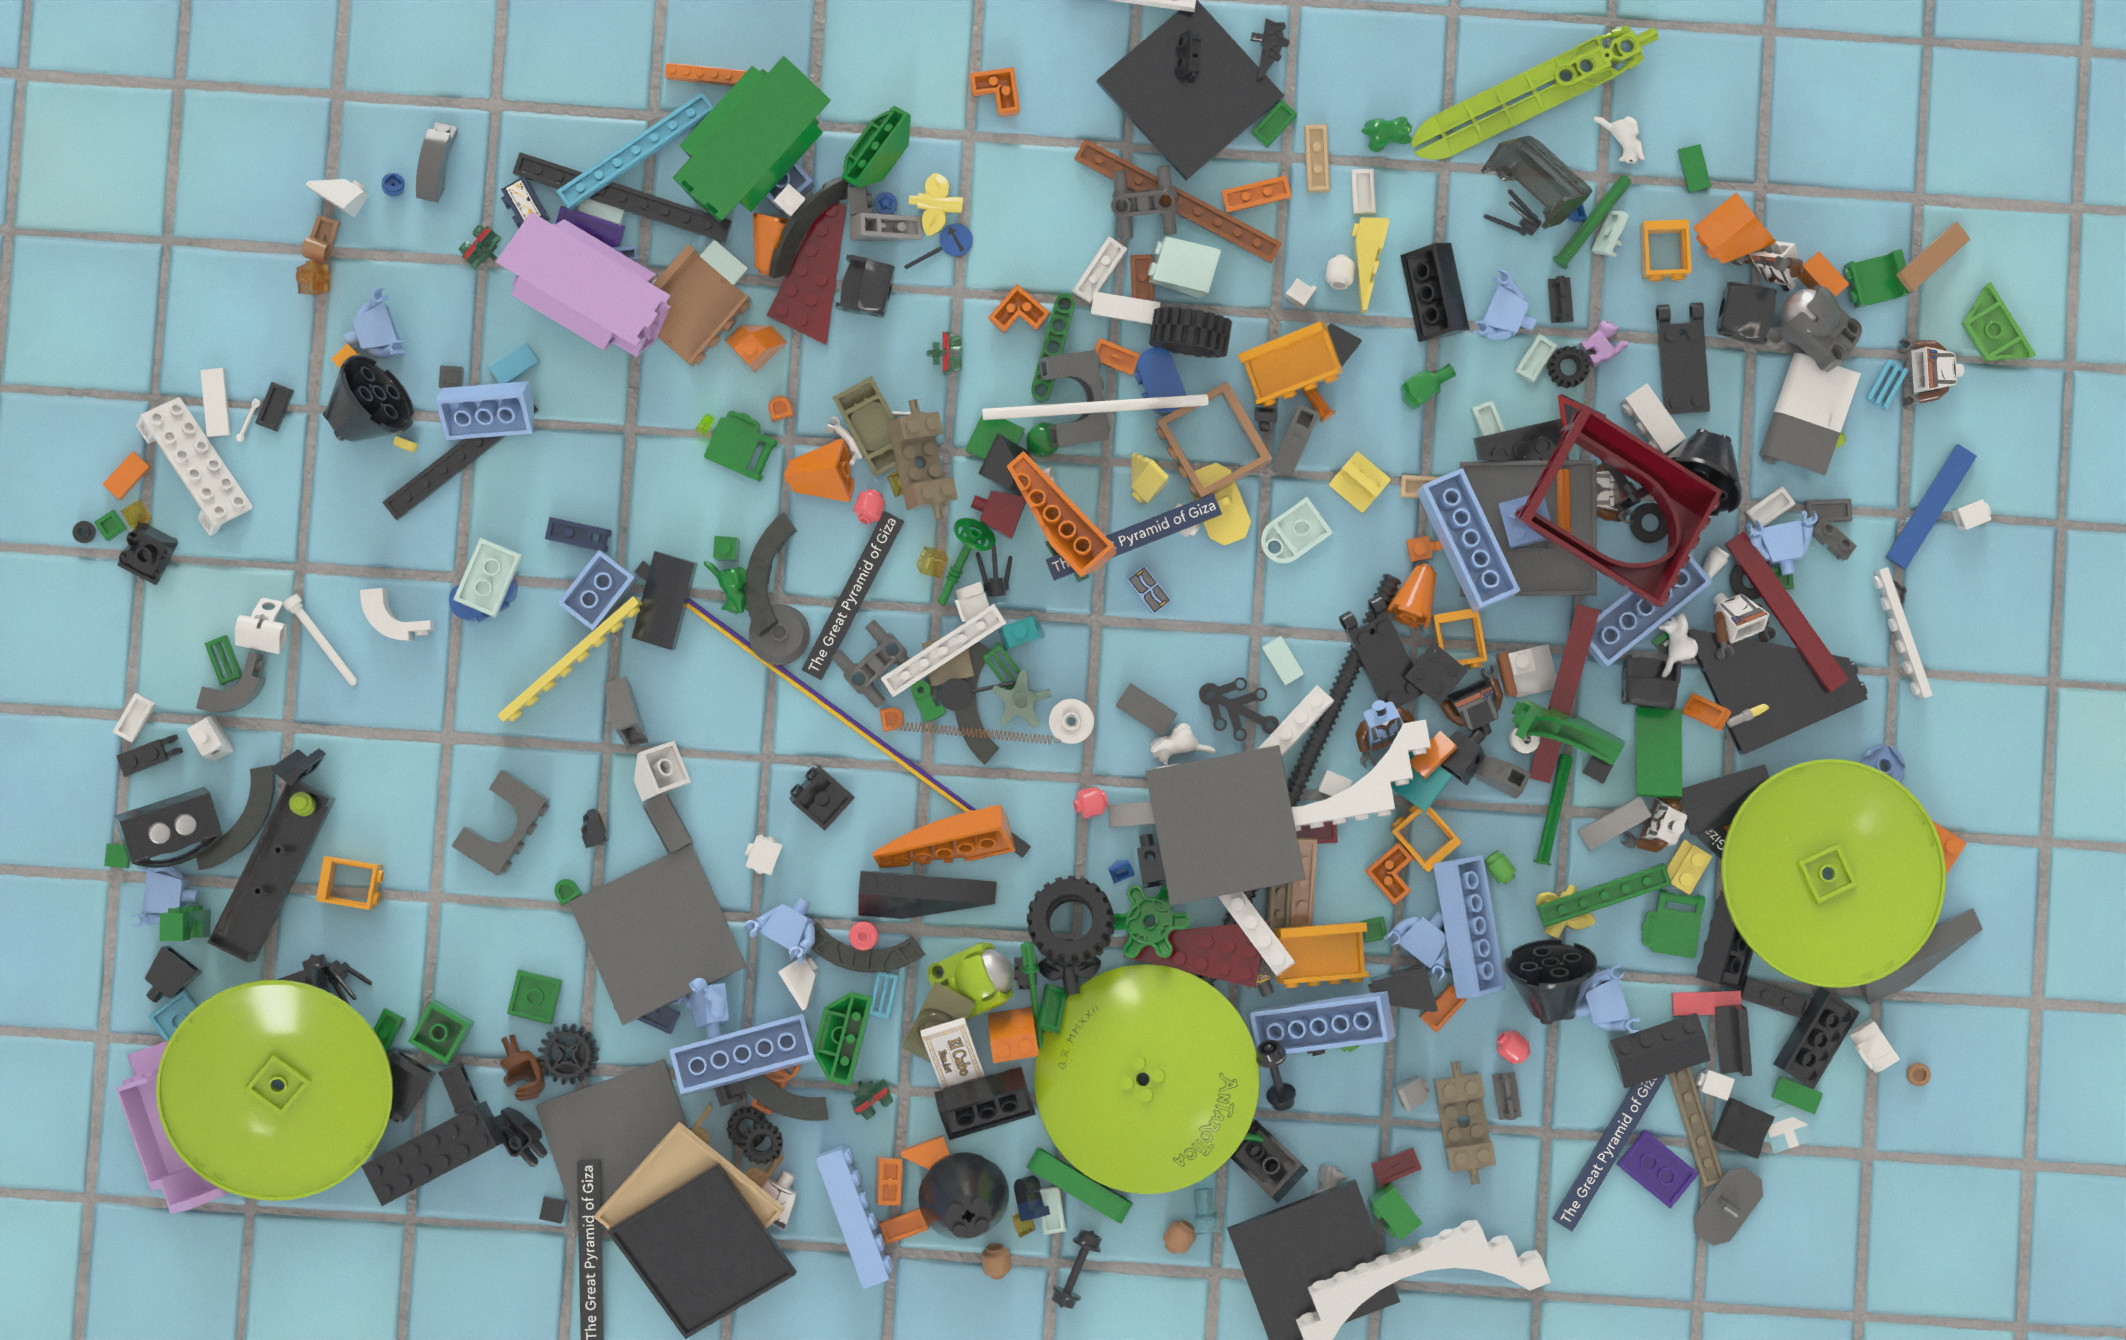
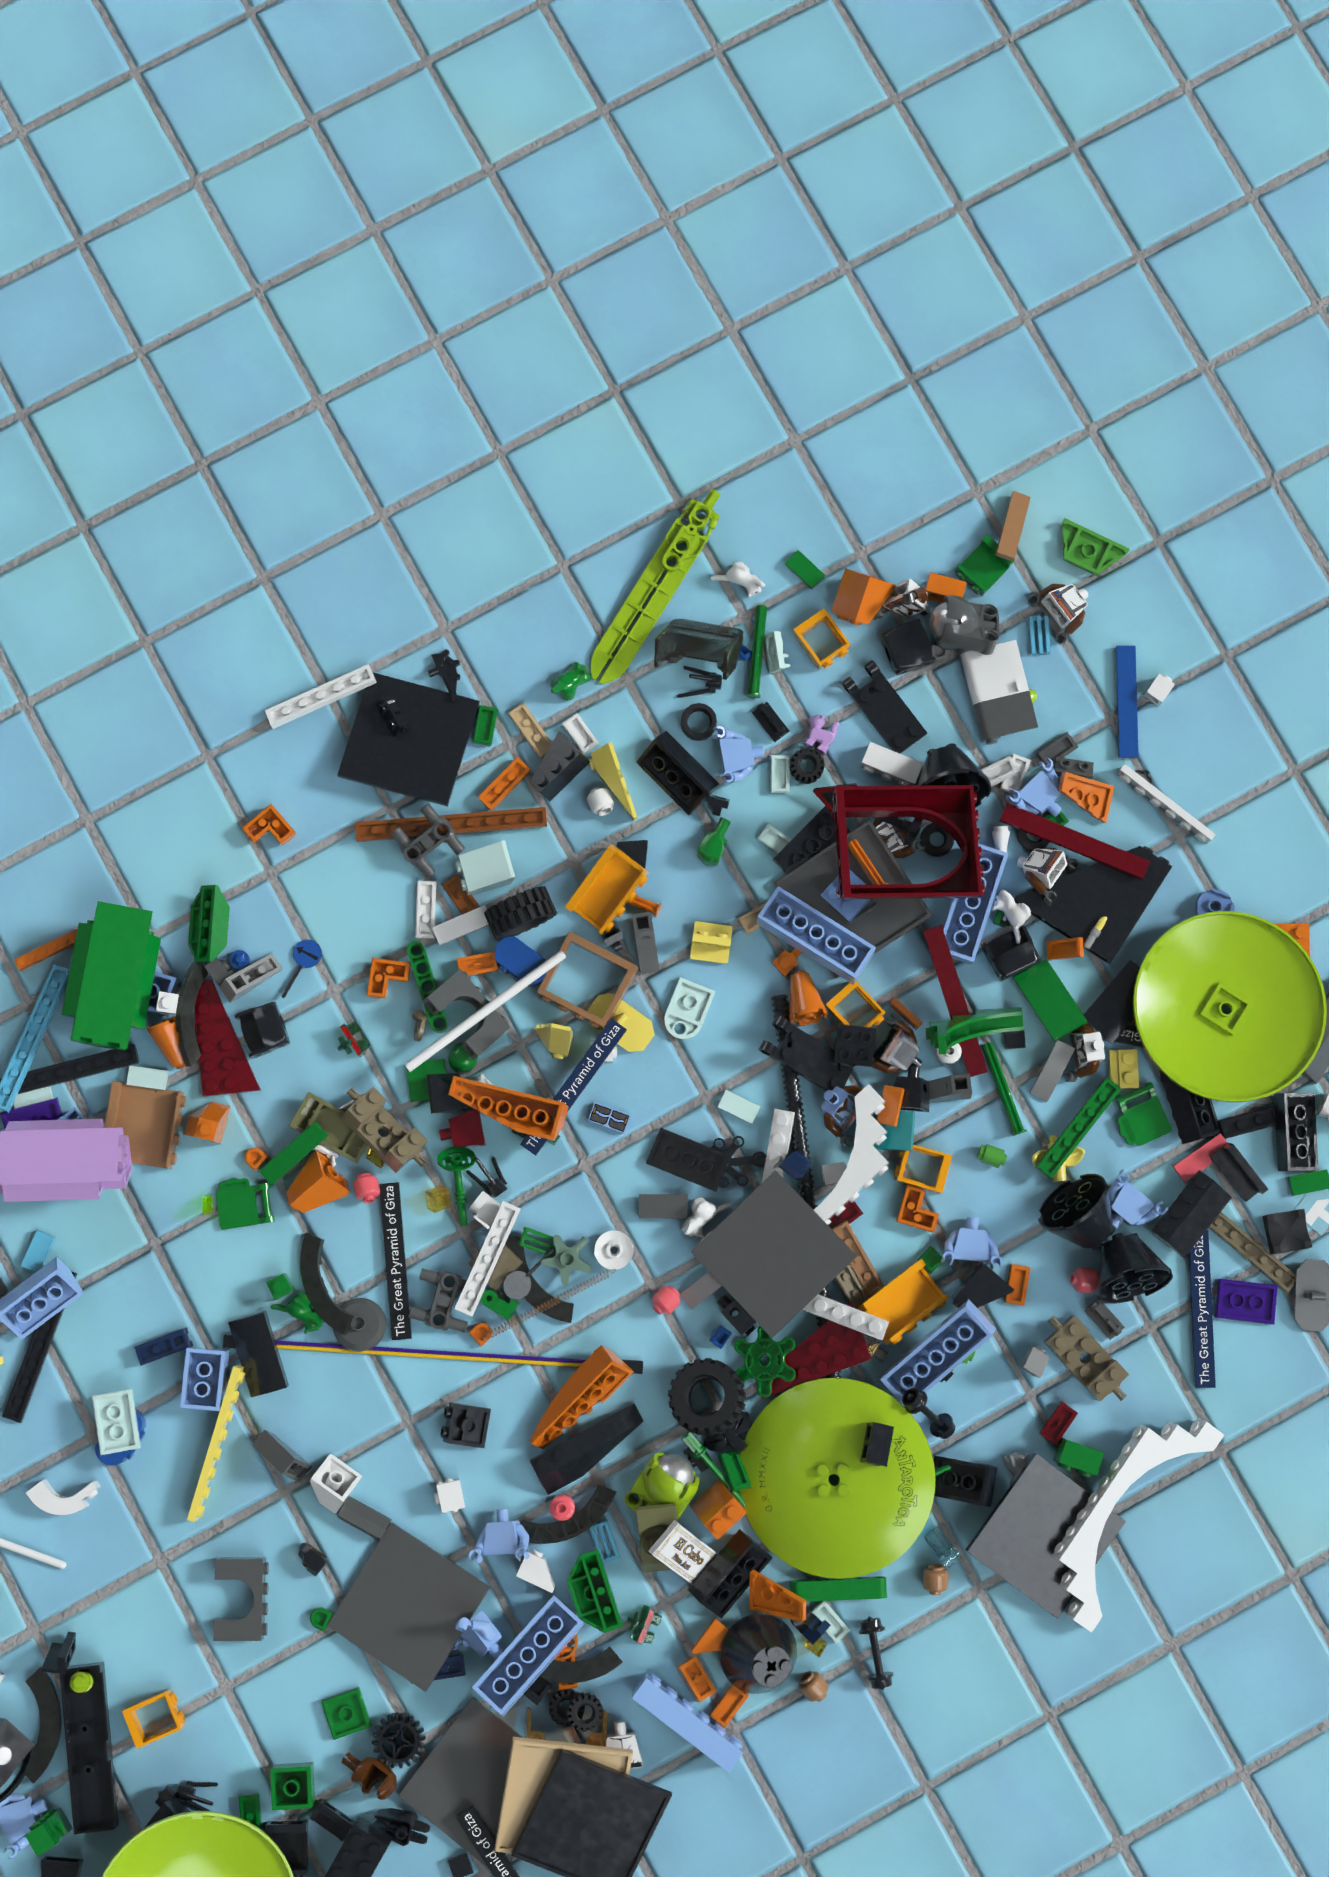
camera: 35 degrees left, 5 degrees down
(820, 427) = (293, 1153): none -> green tile
(936, 203) = (276, 937): light yellow plant -> none
(1011, 1154) = (774, 1599): none -> orange wing
(1021, 632) = (536, 1209): teal torso -> none
(1027, 374) = (420, 1017): none -> dark tan piece
(1200, 680) = (688, 1159): none -> black tile
(1207, 1072) = (877, 1444): none -> black hinge
(1299, 293) = (581, 834): white panel -> none
(1302, 753) = (795, 1165): none -> dark blue brick
(1320, 211) = (558, 767): none -> black wedge
(1456, 348) = (719, 803): none -> black tile
(1469, 926) = (997, 1213): light blue brick -> none
(1499, 241) = (702, 708): none -> black tyre
(1532, 670) = (922, 998): white slope -> none
(1563, 1065) = (1129, 1270): none -> black cone
(1714, 1084) = (1246, 1212): white brick -> none
(1759, 495) = (1000, 770): none -> white tile
(1830, 573) = (1088, 794): none -> orange wing

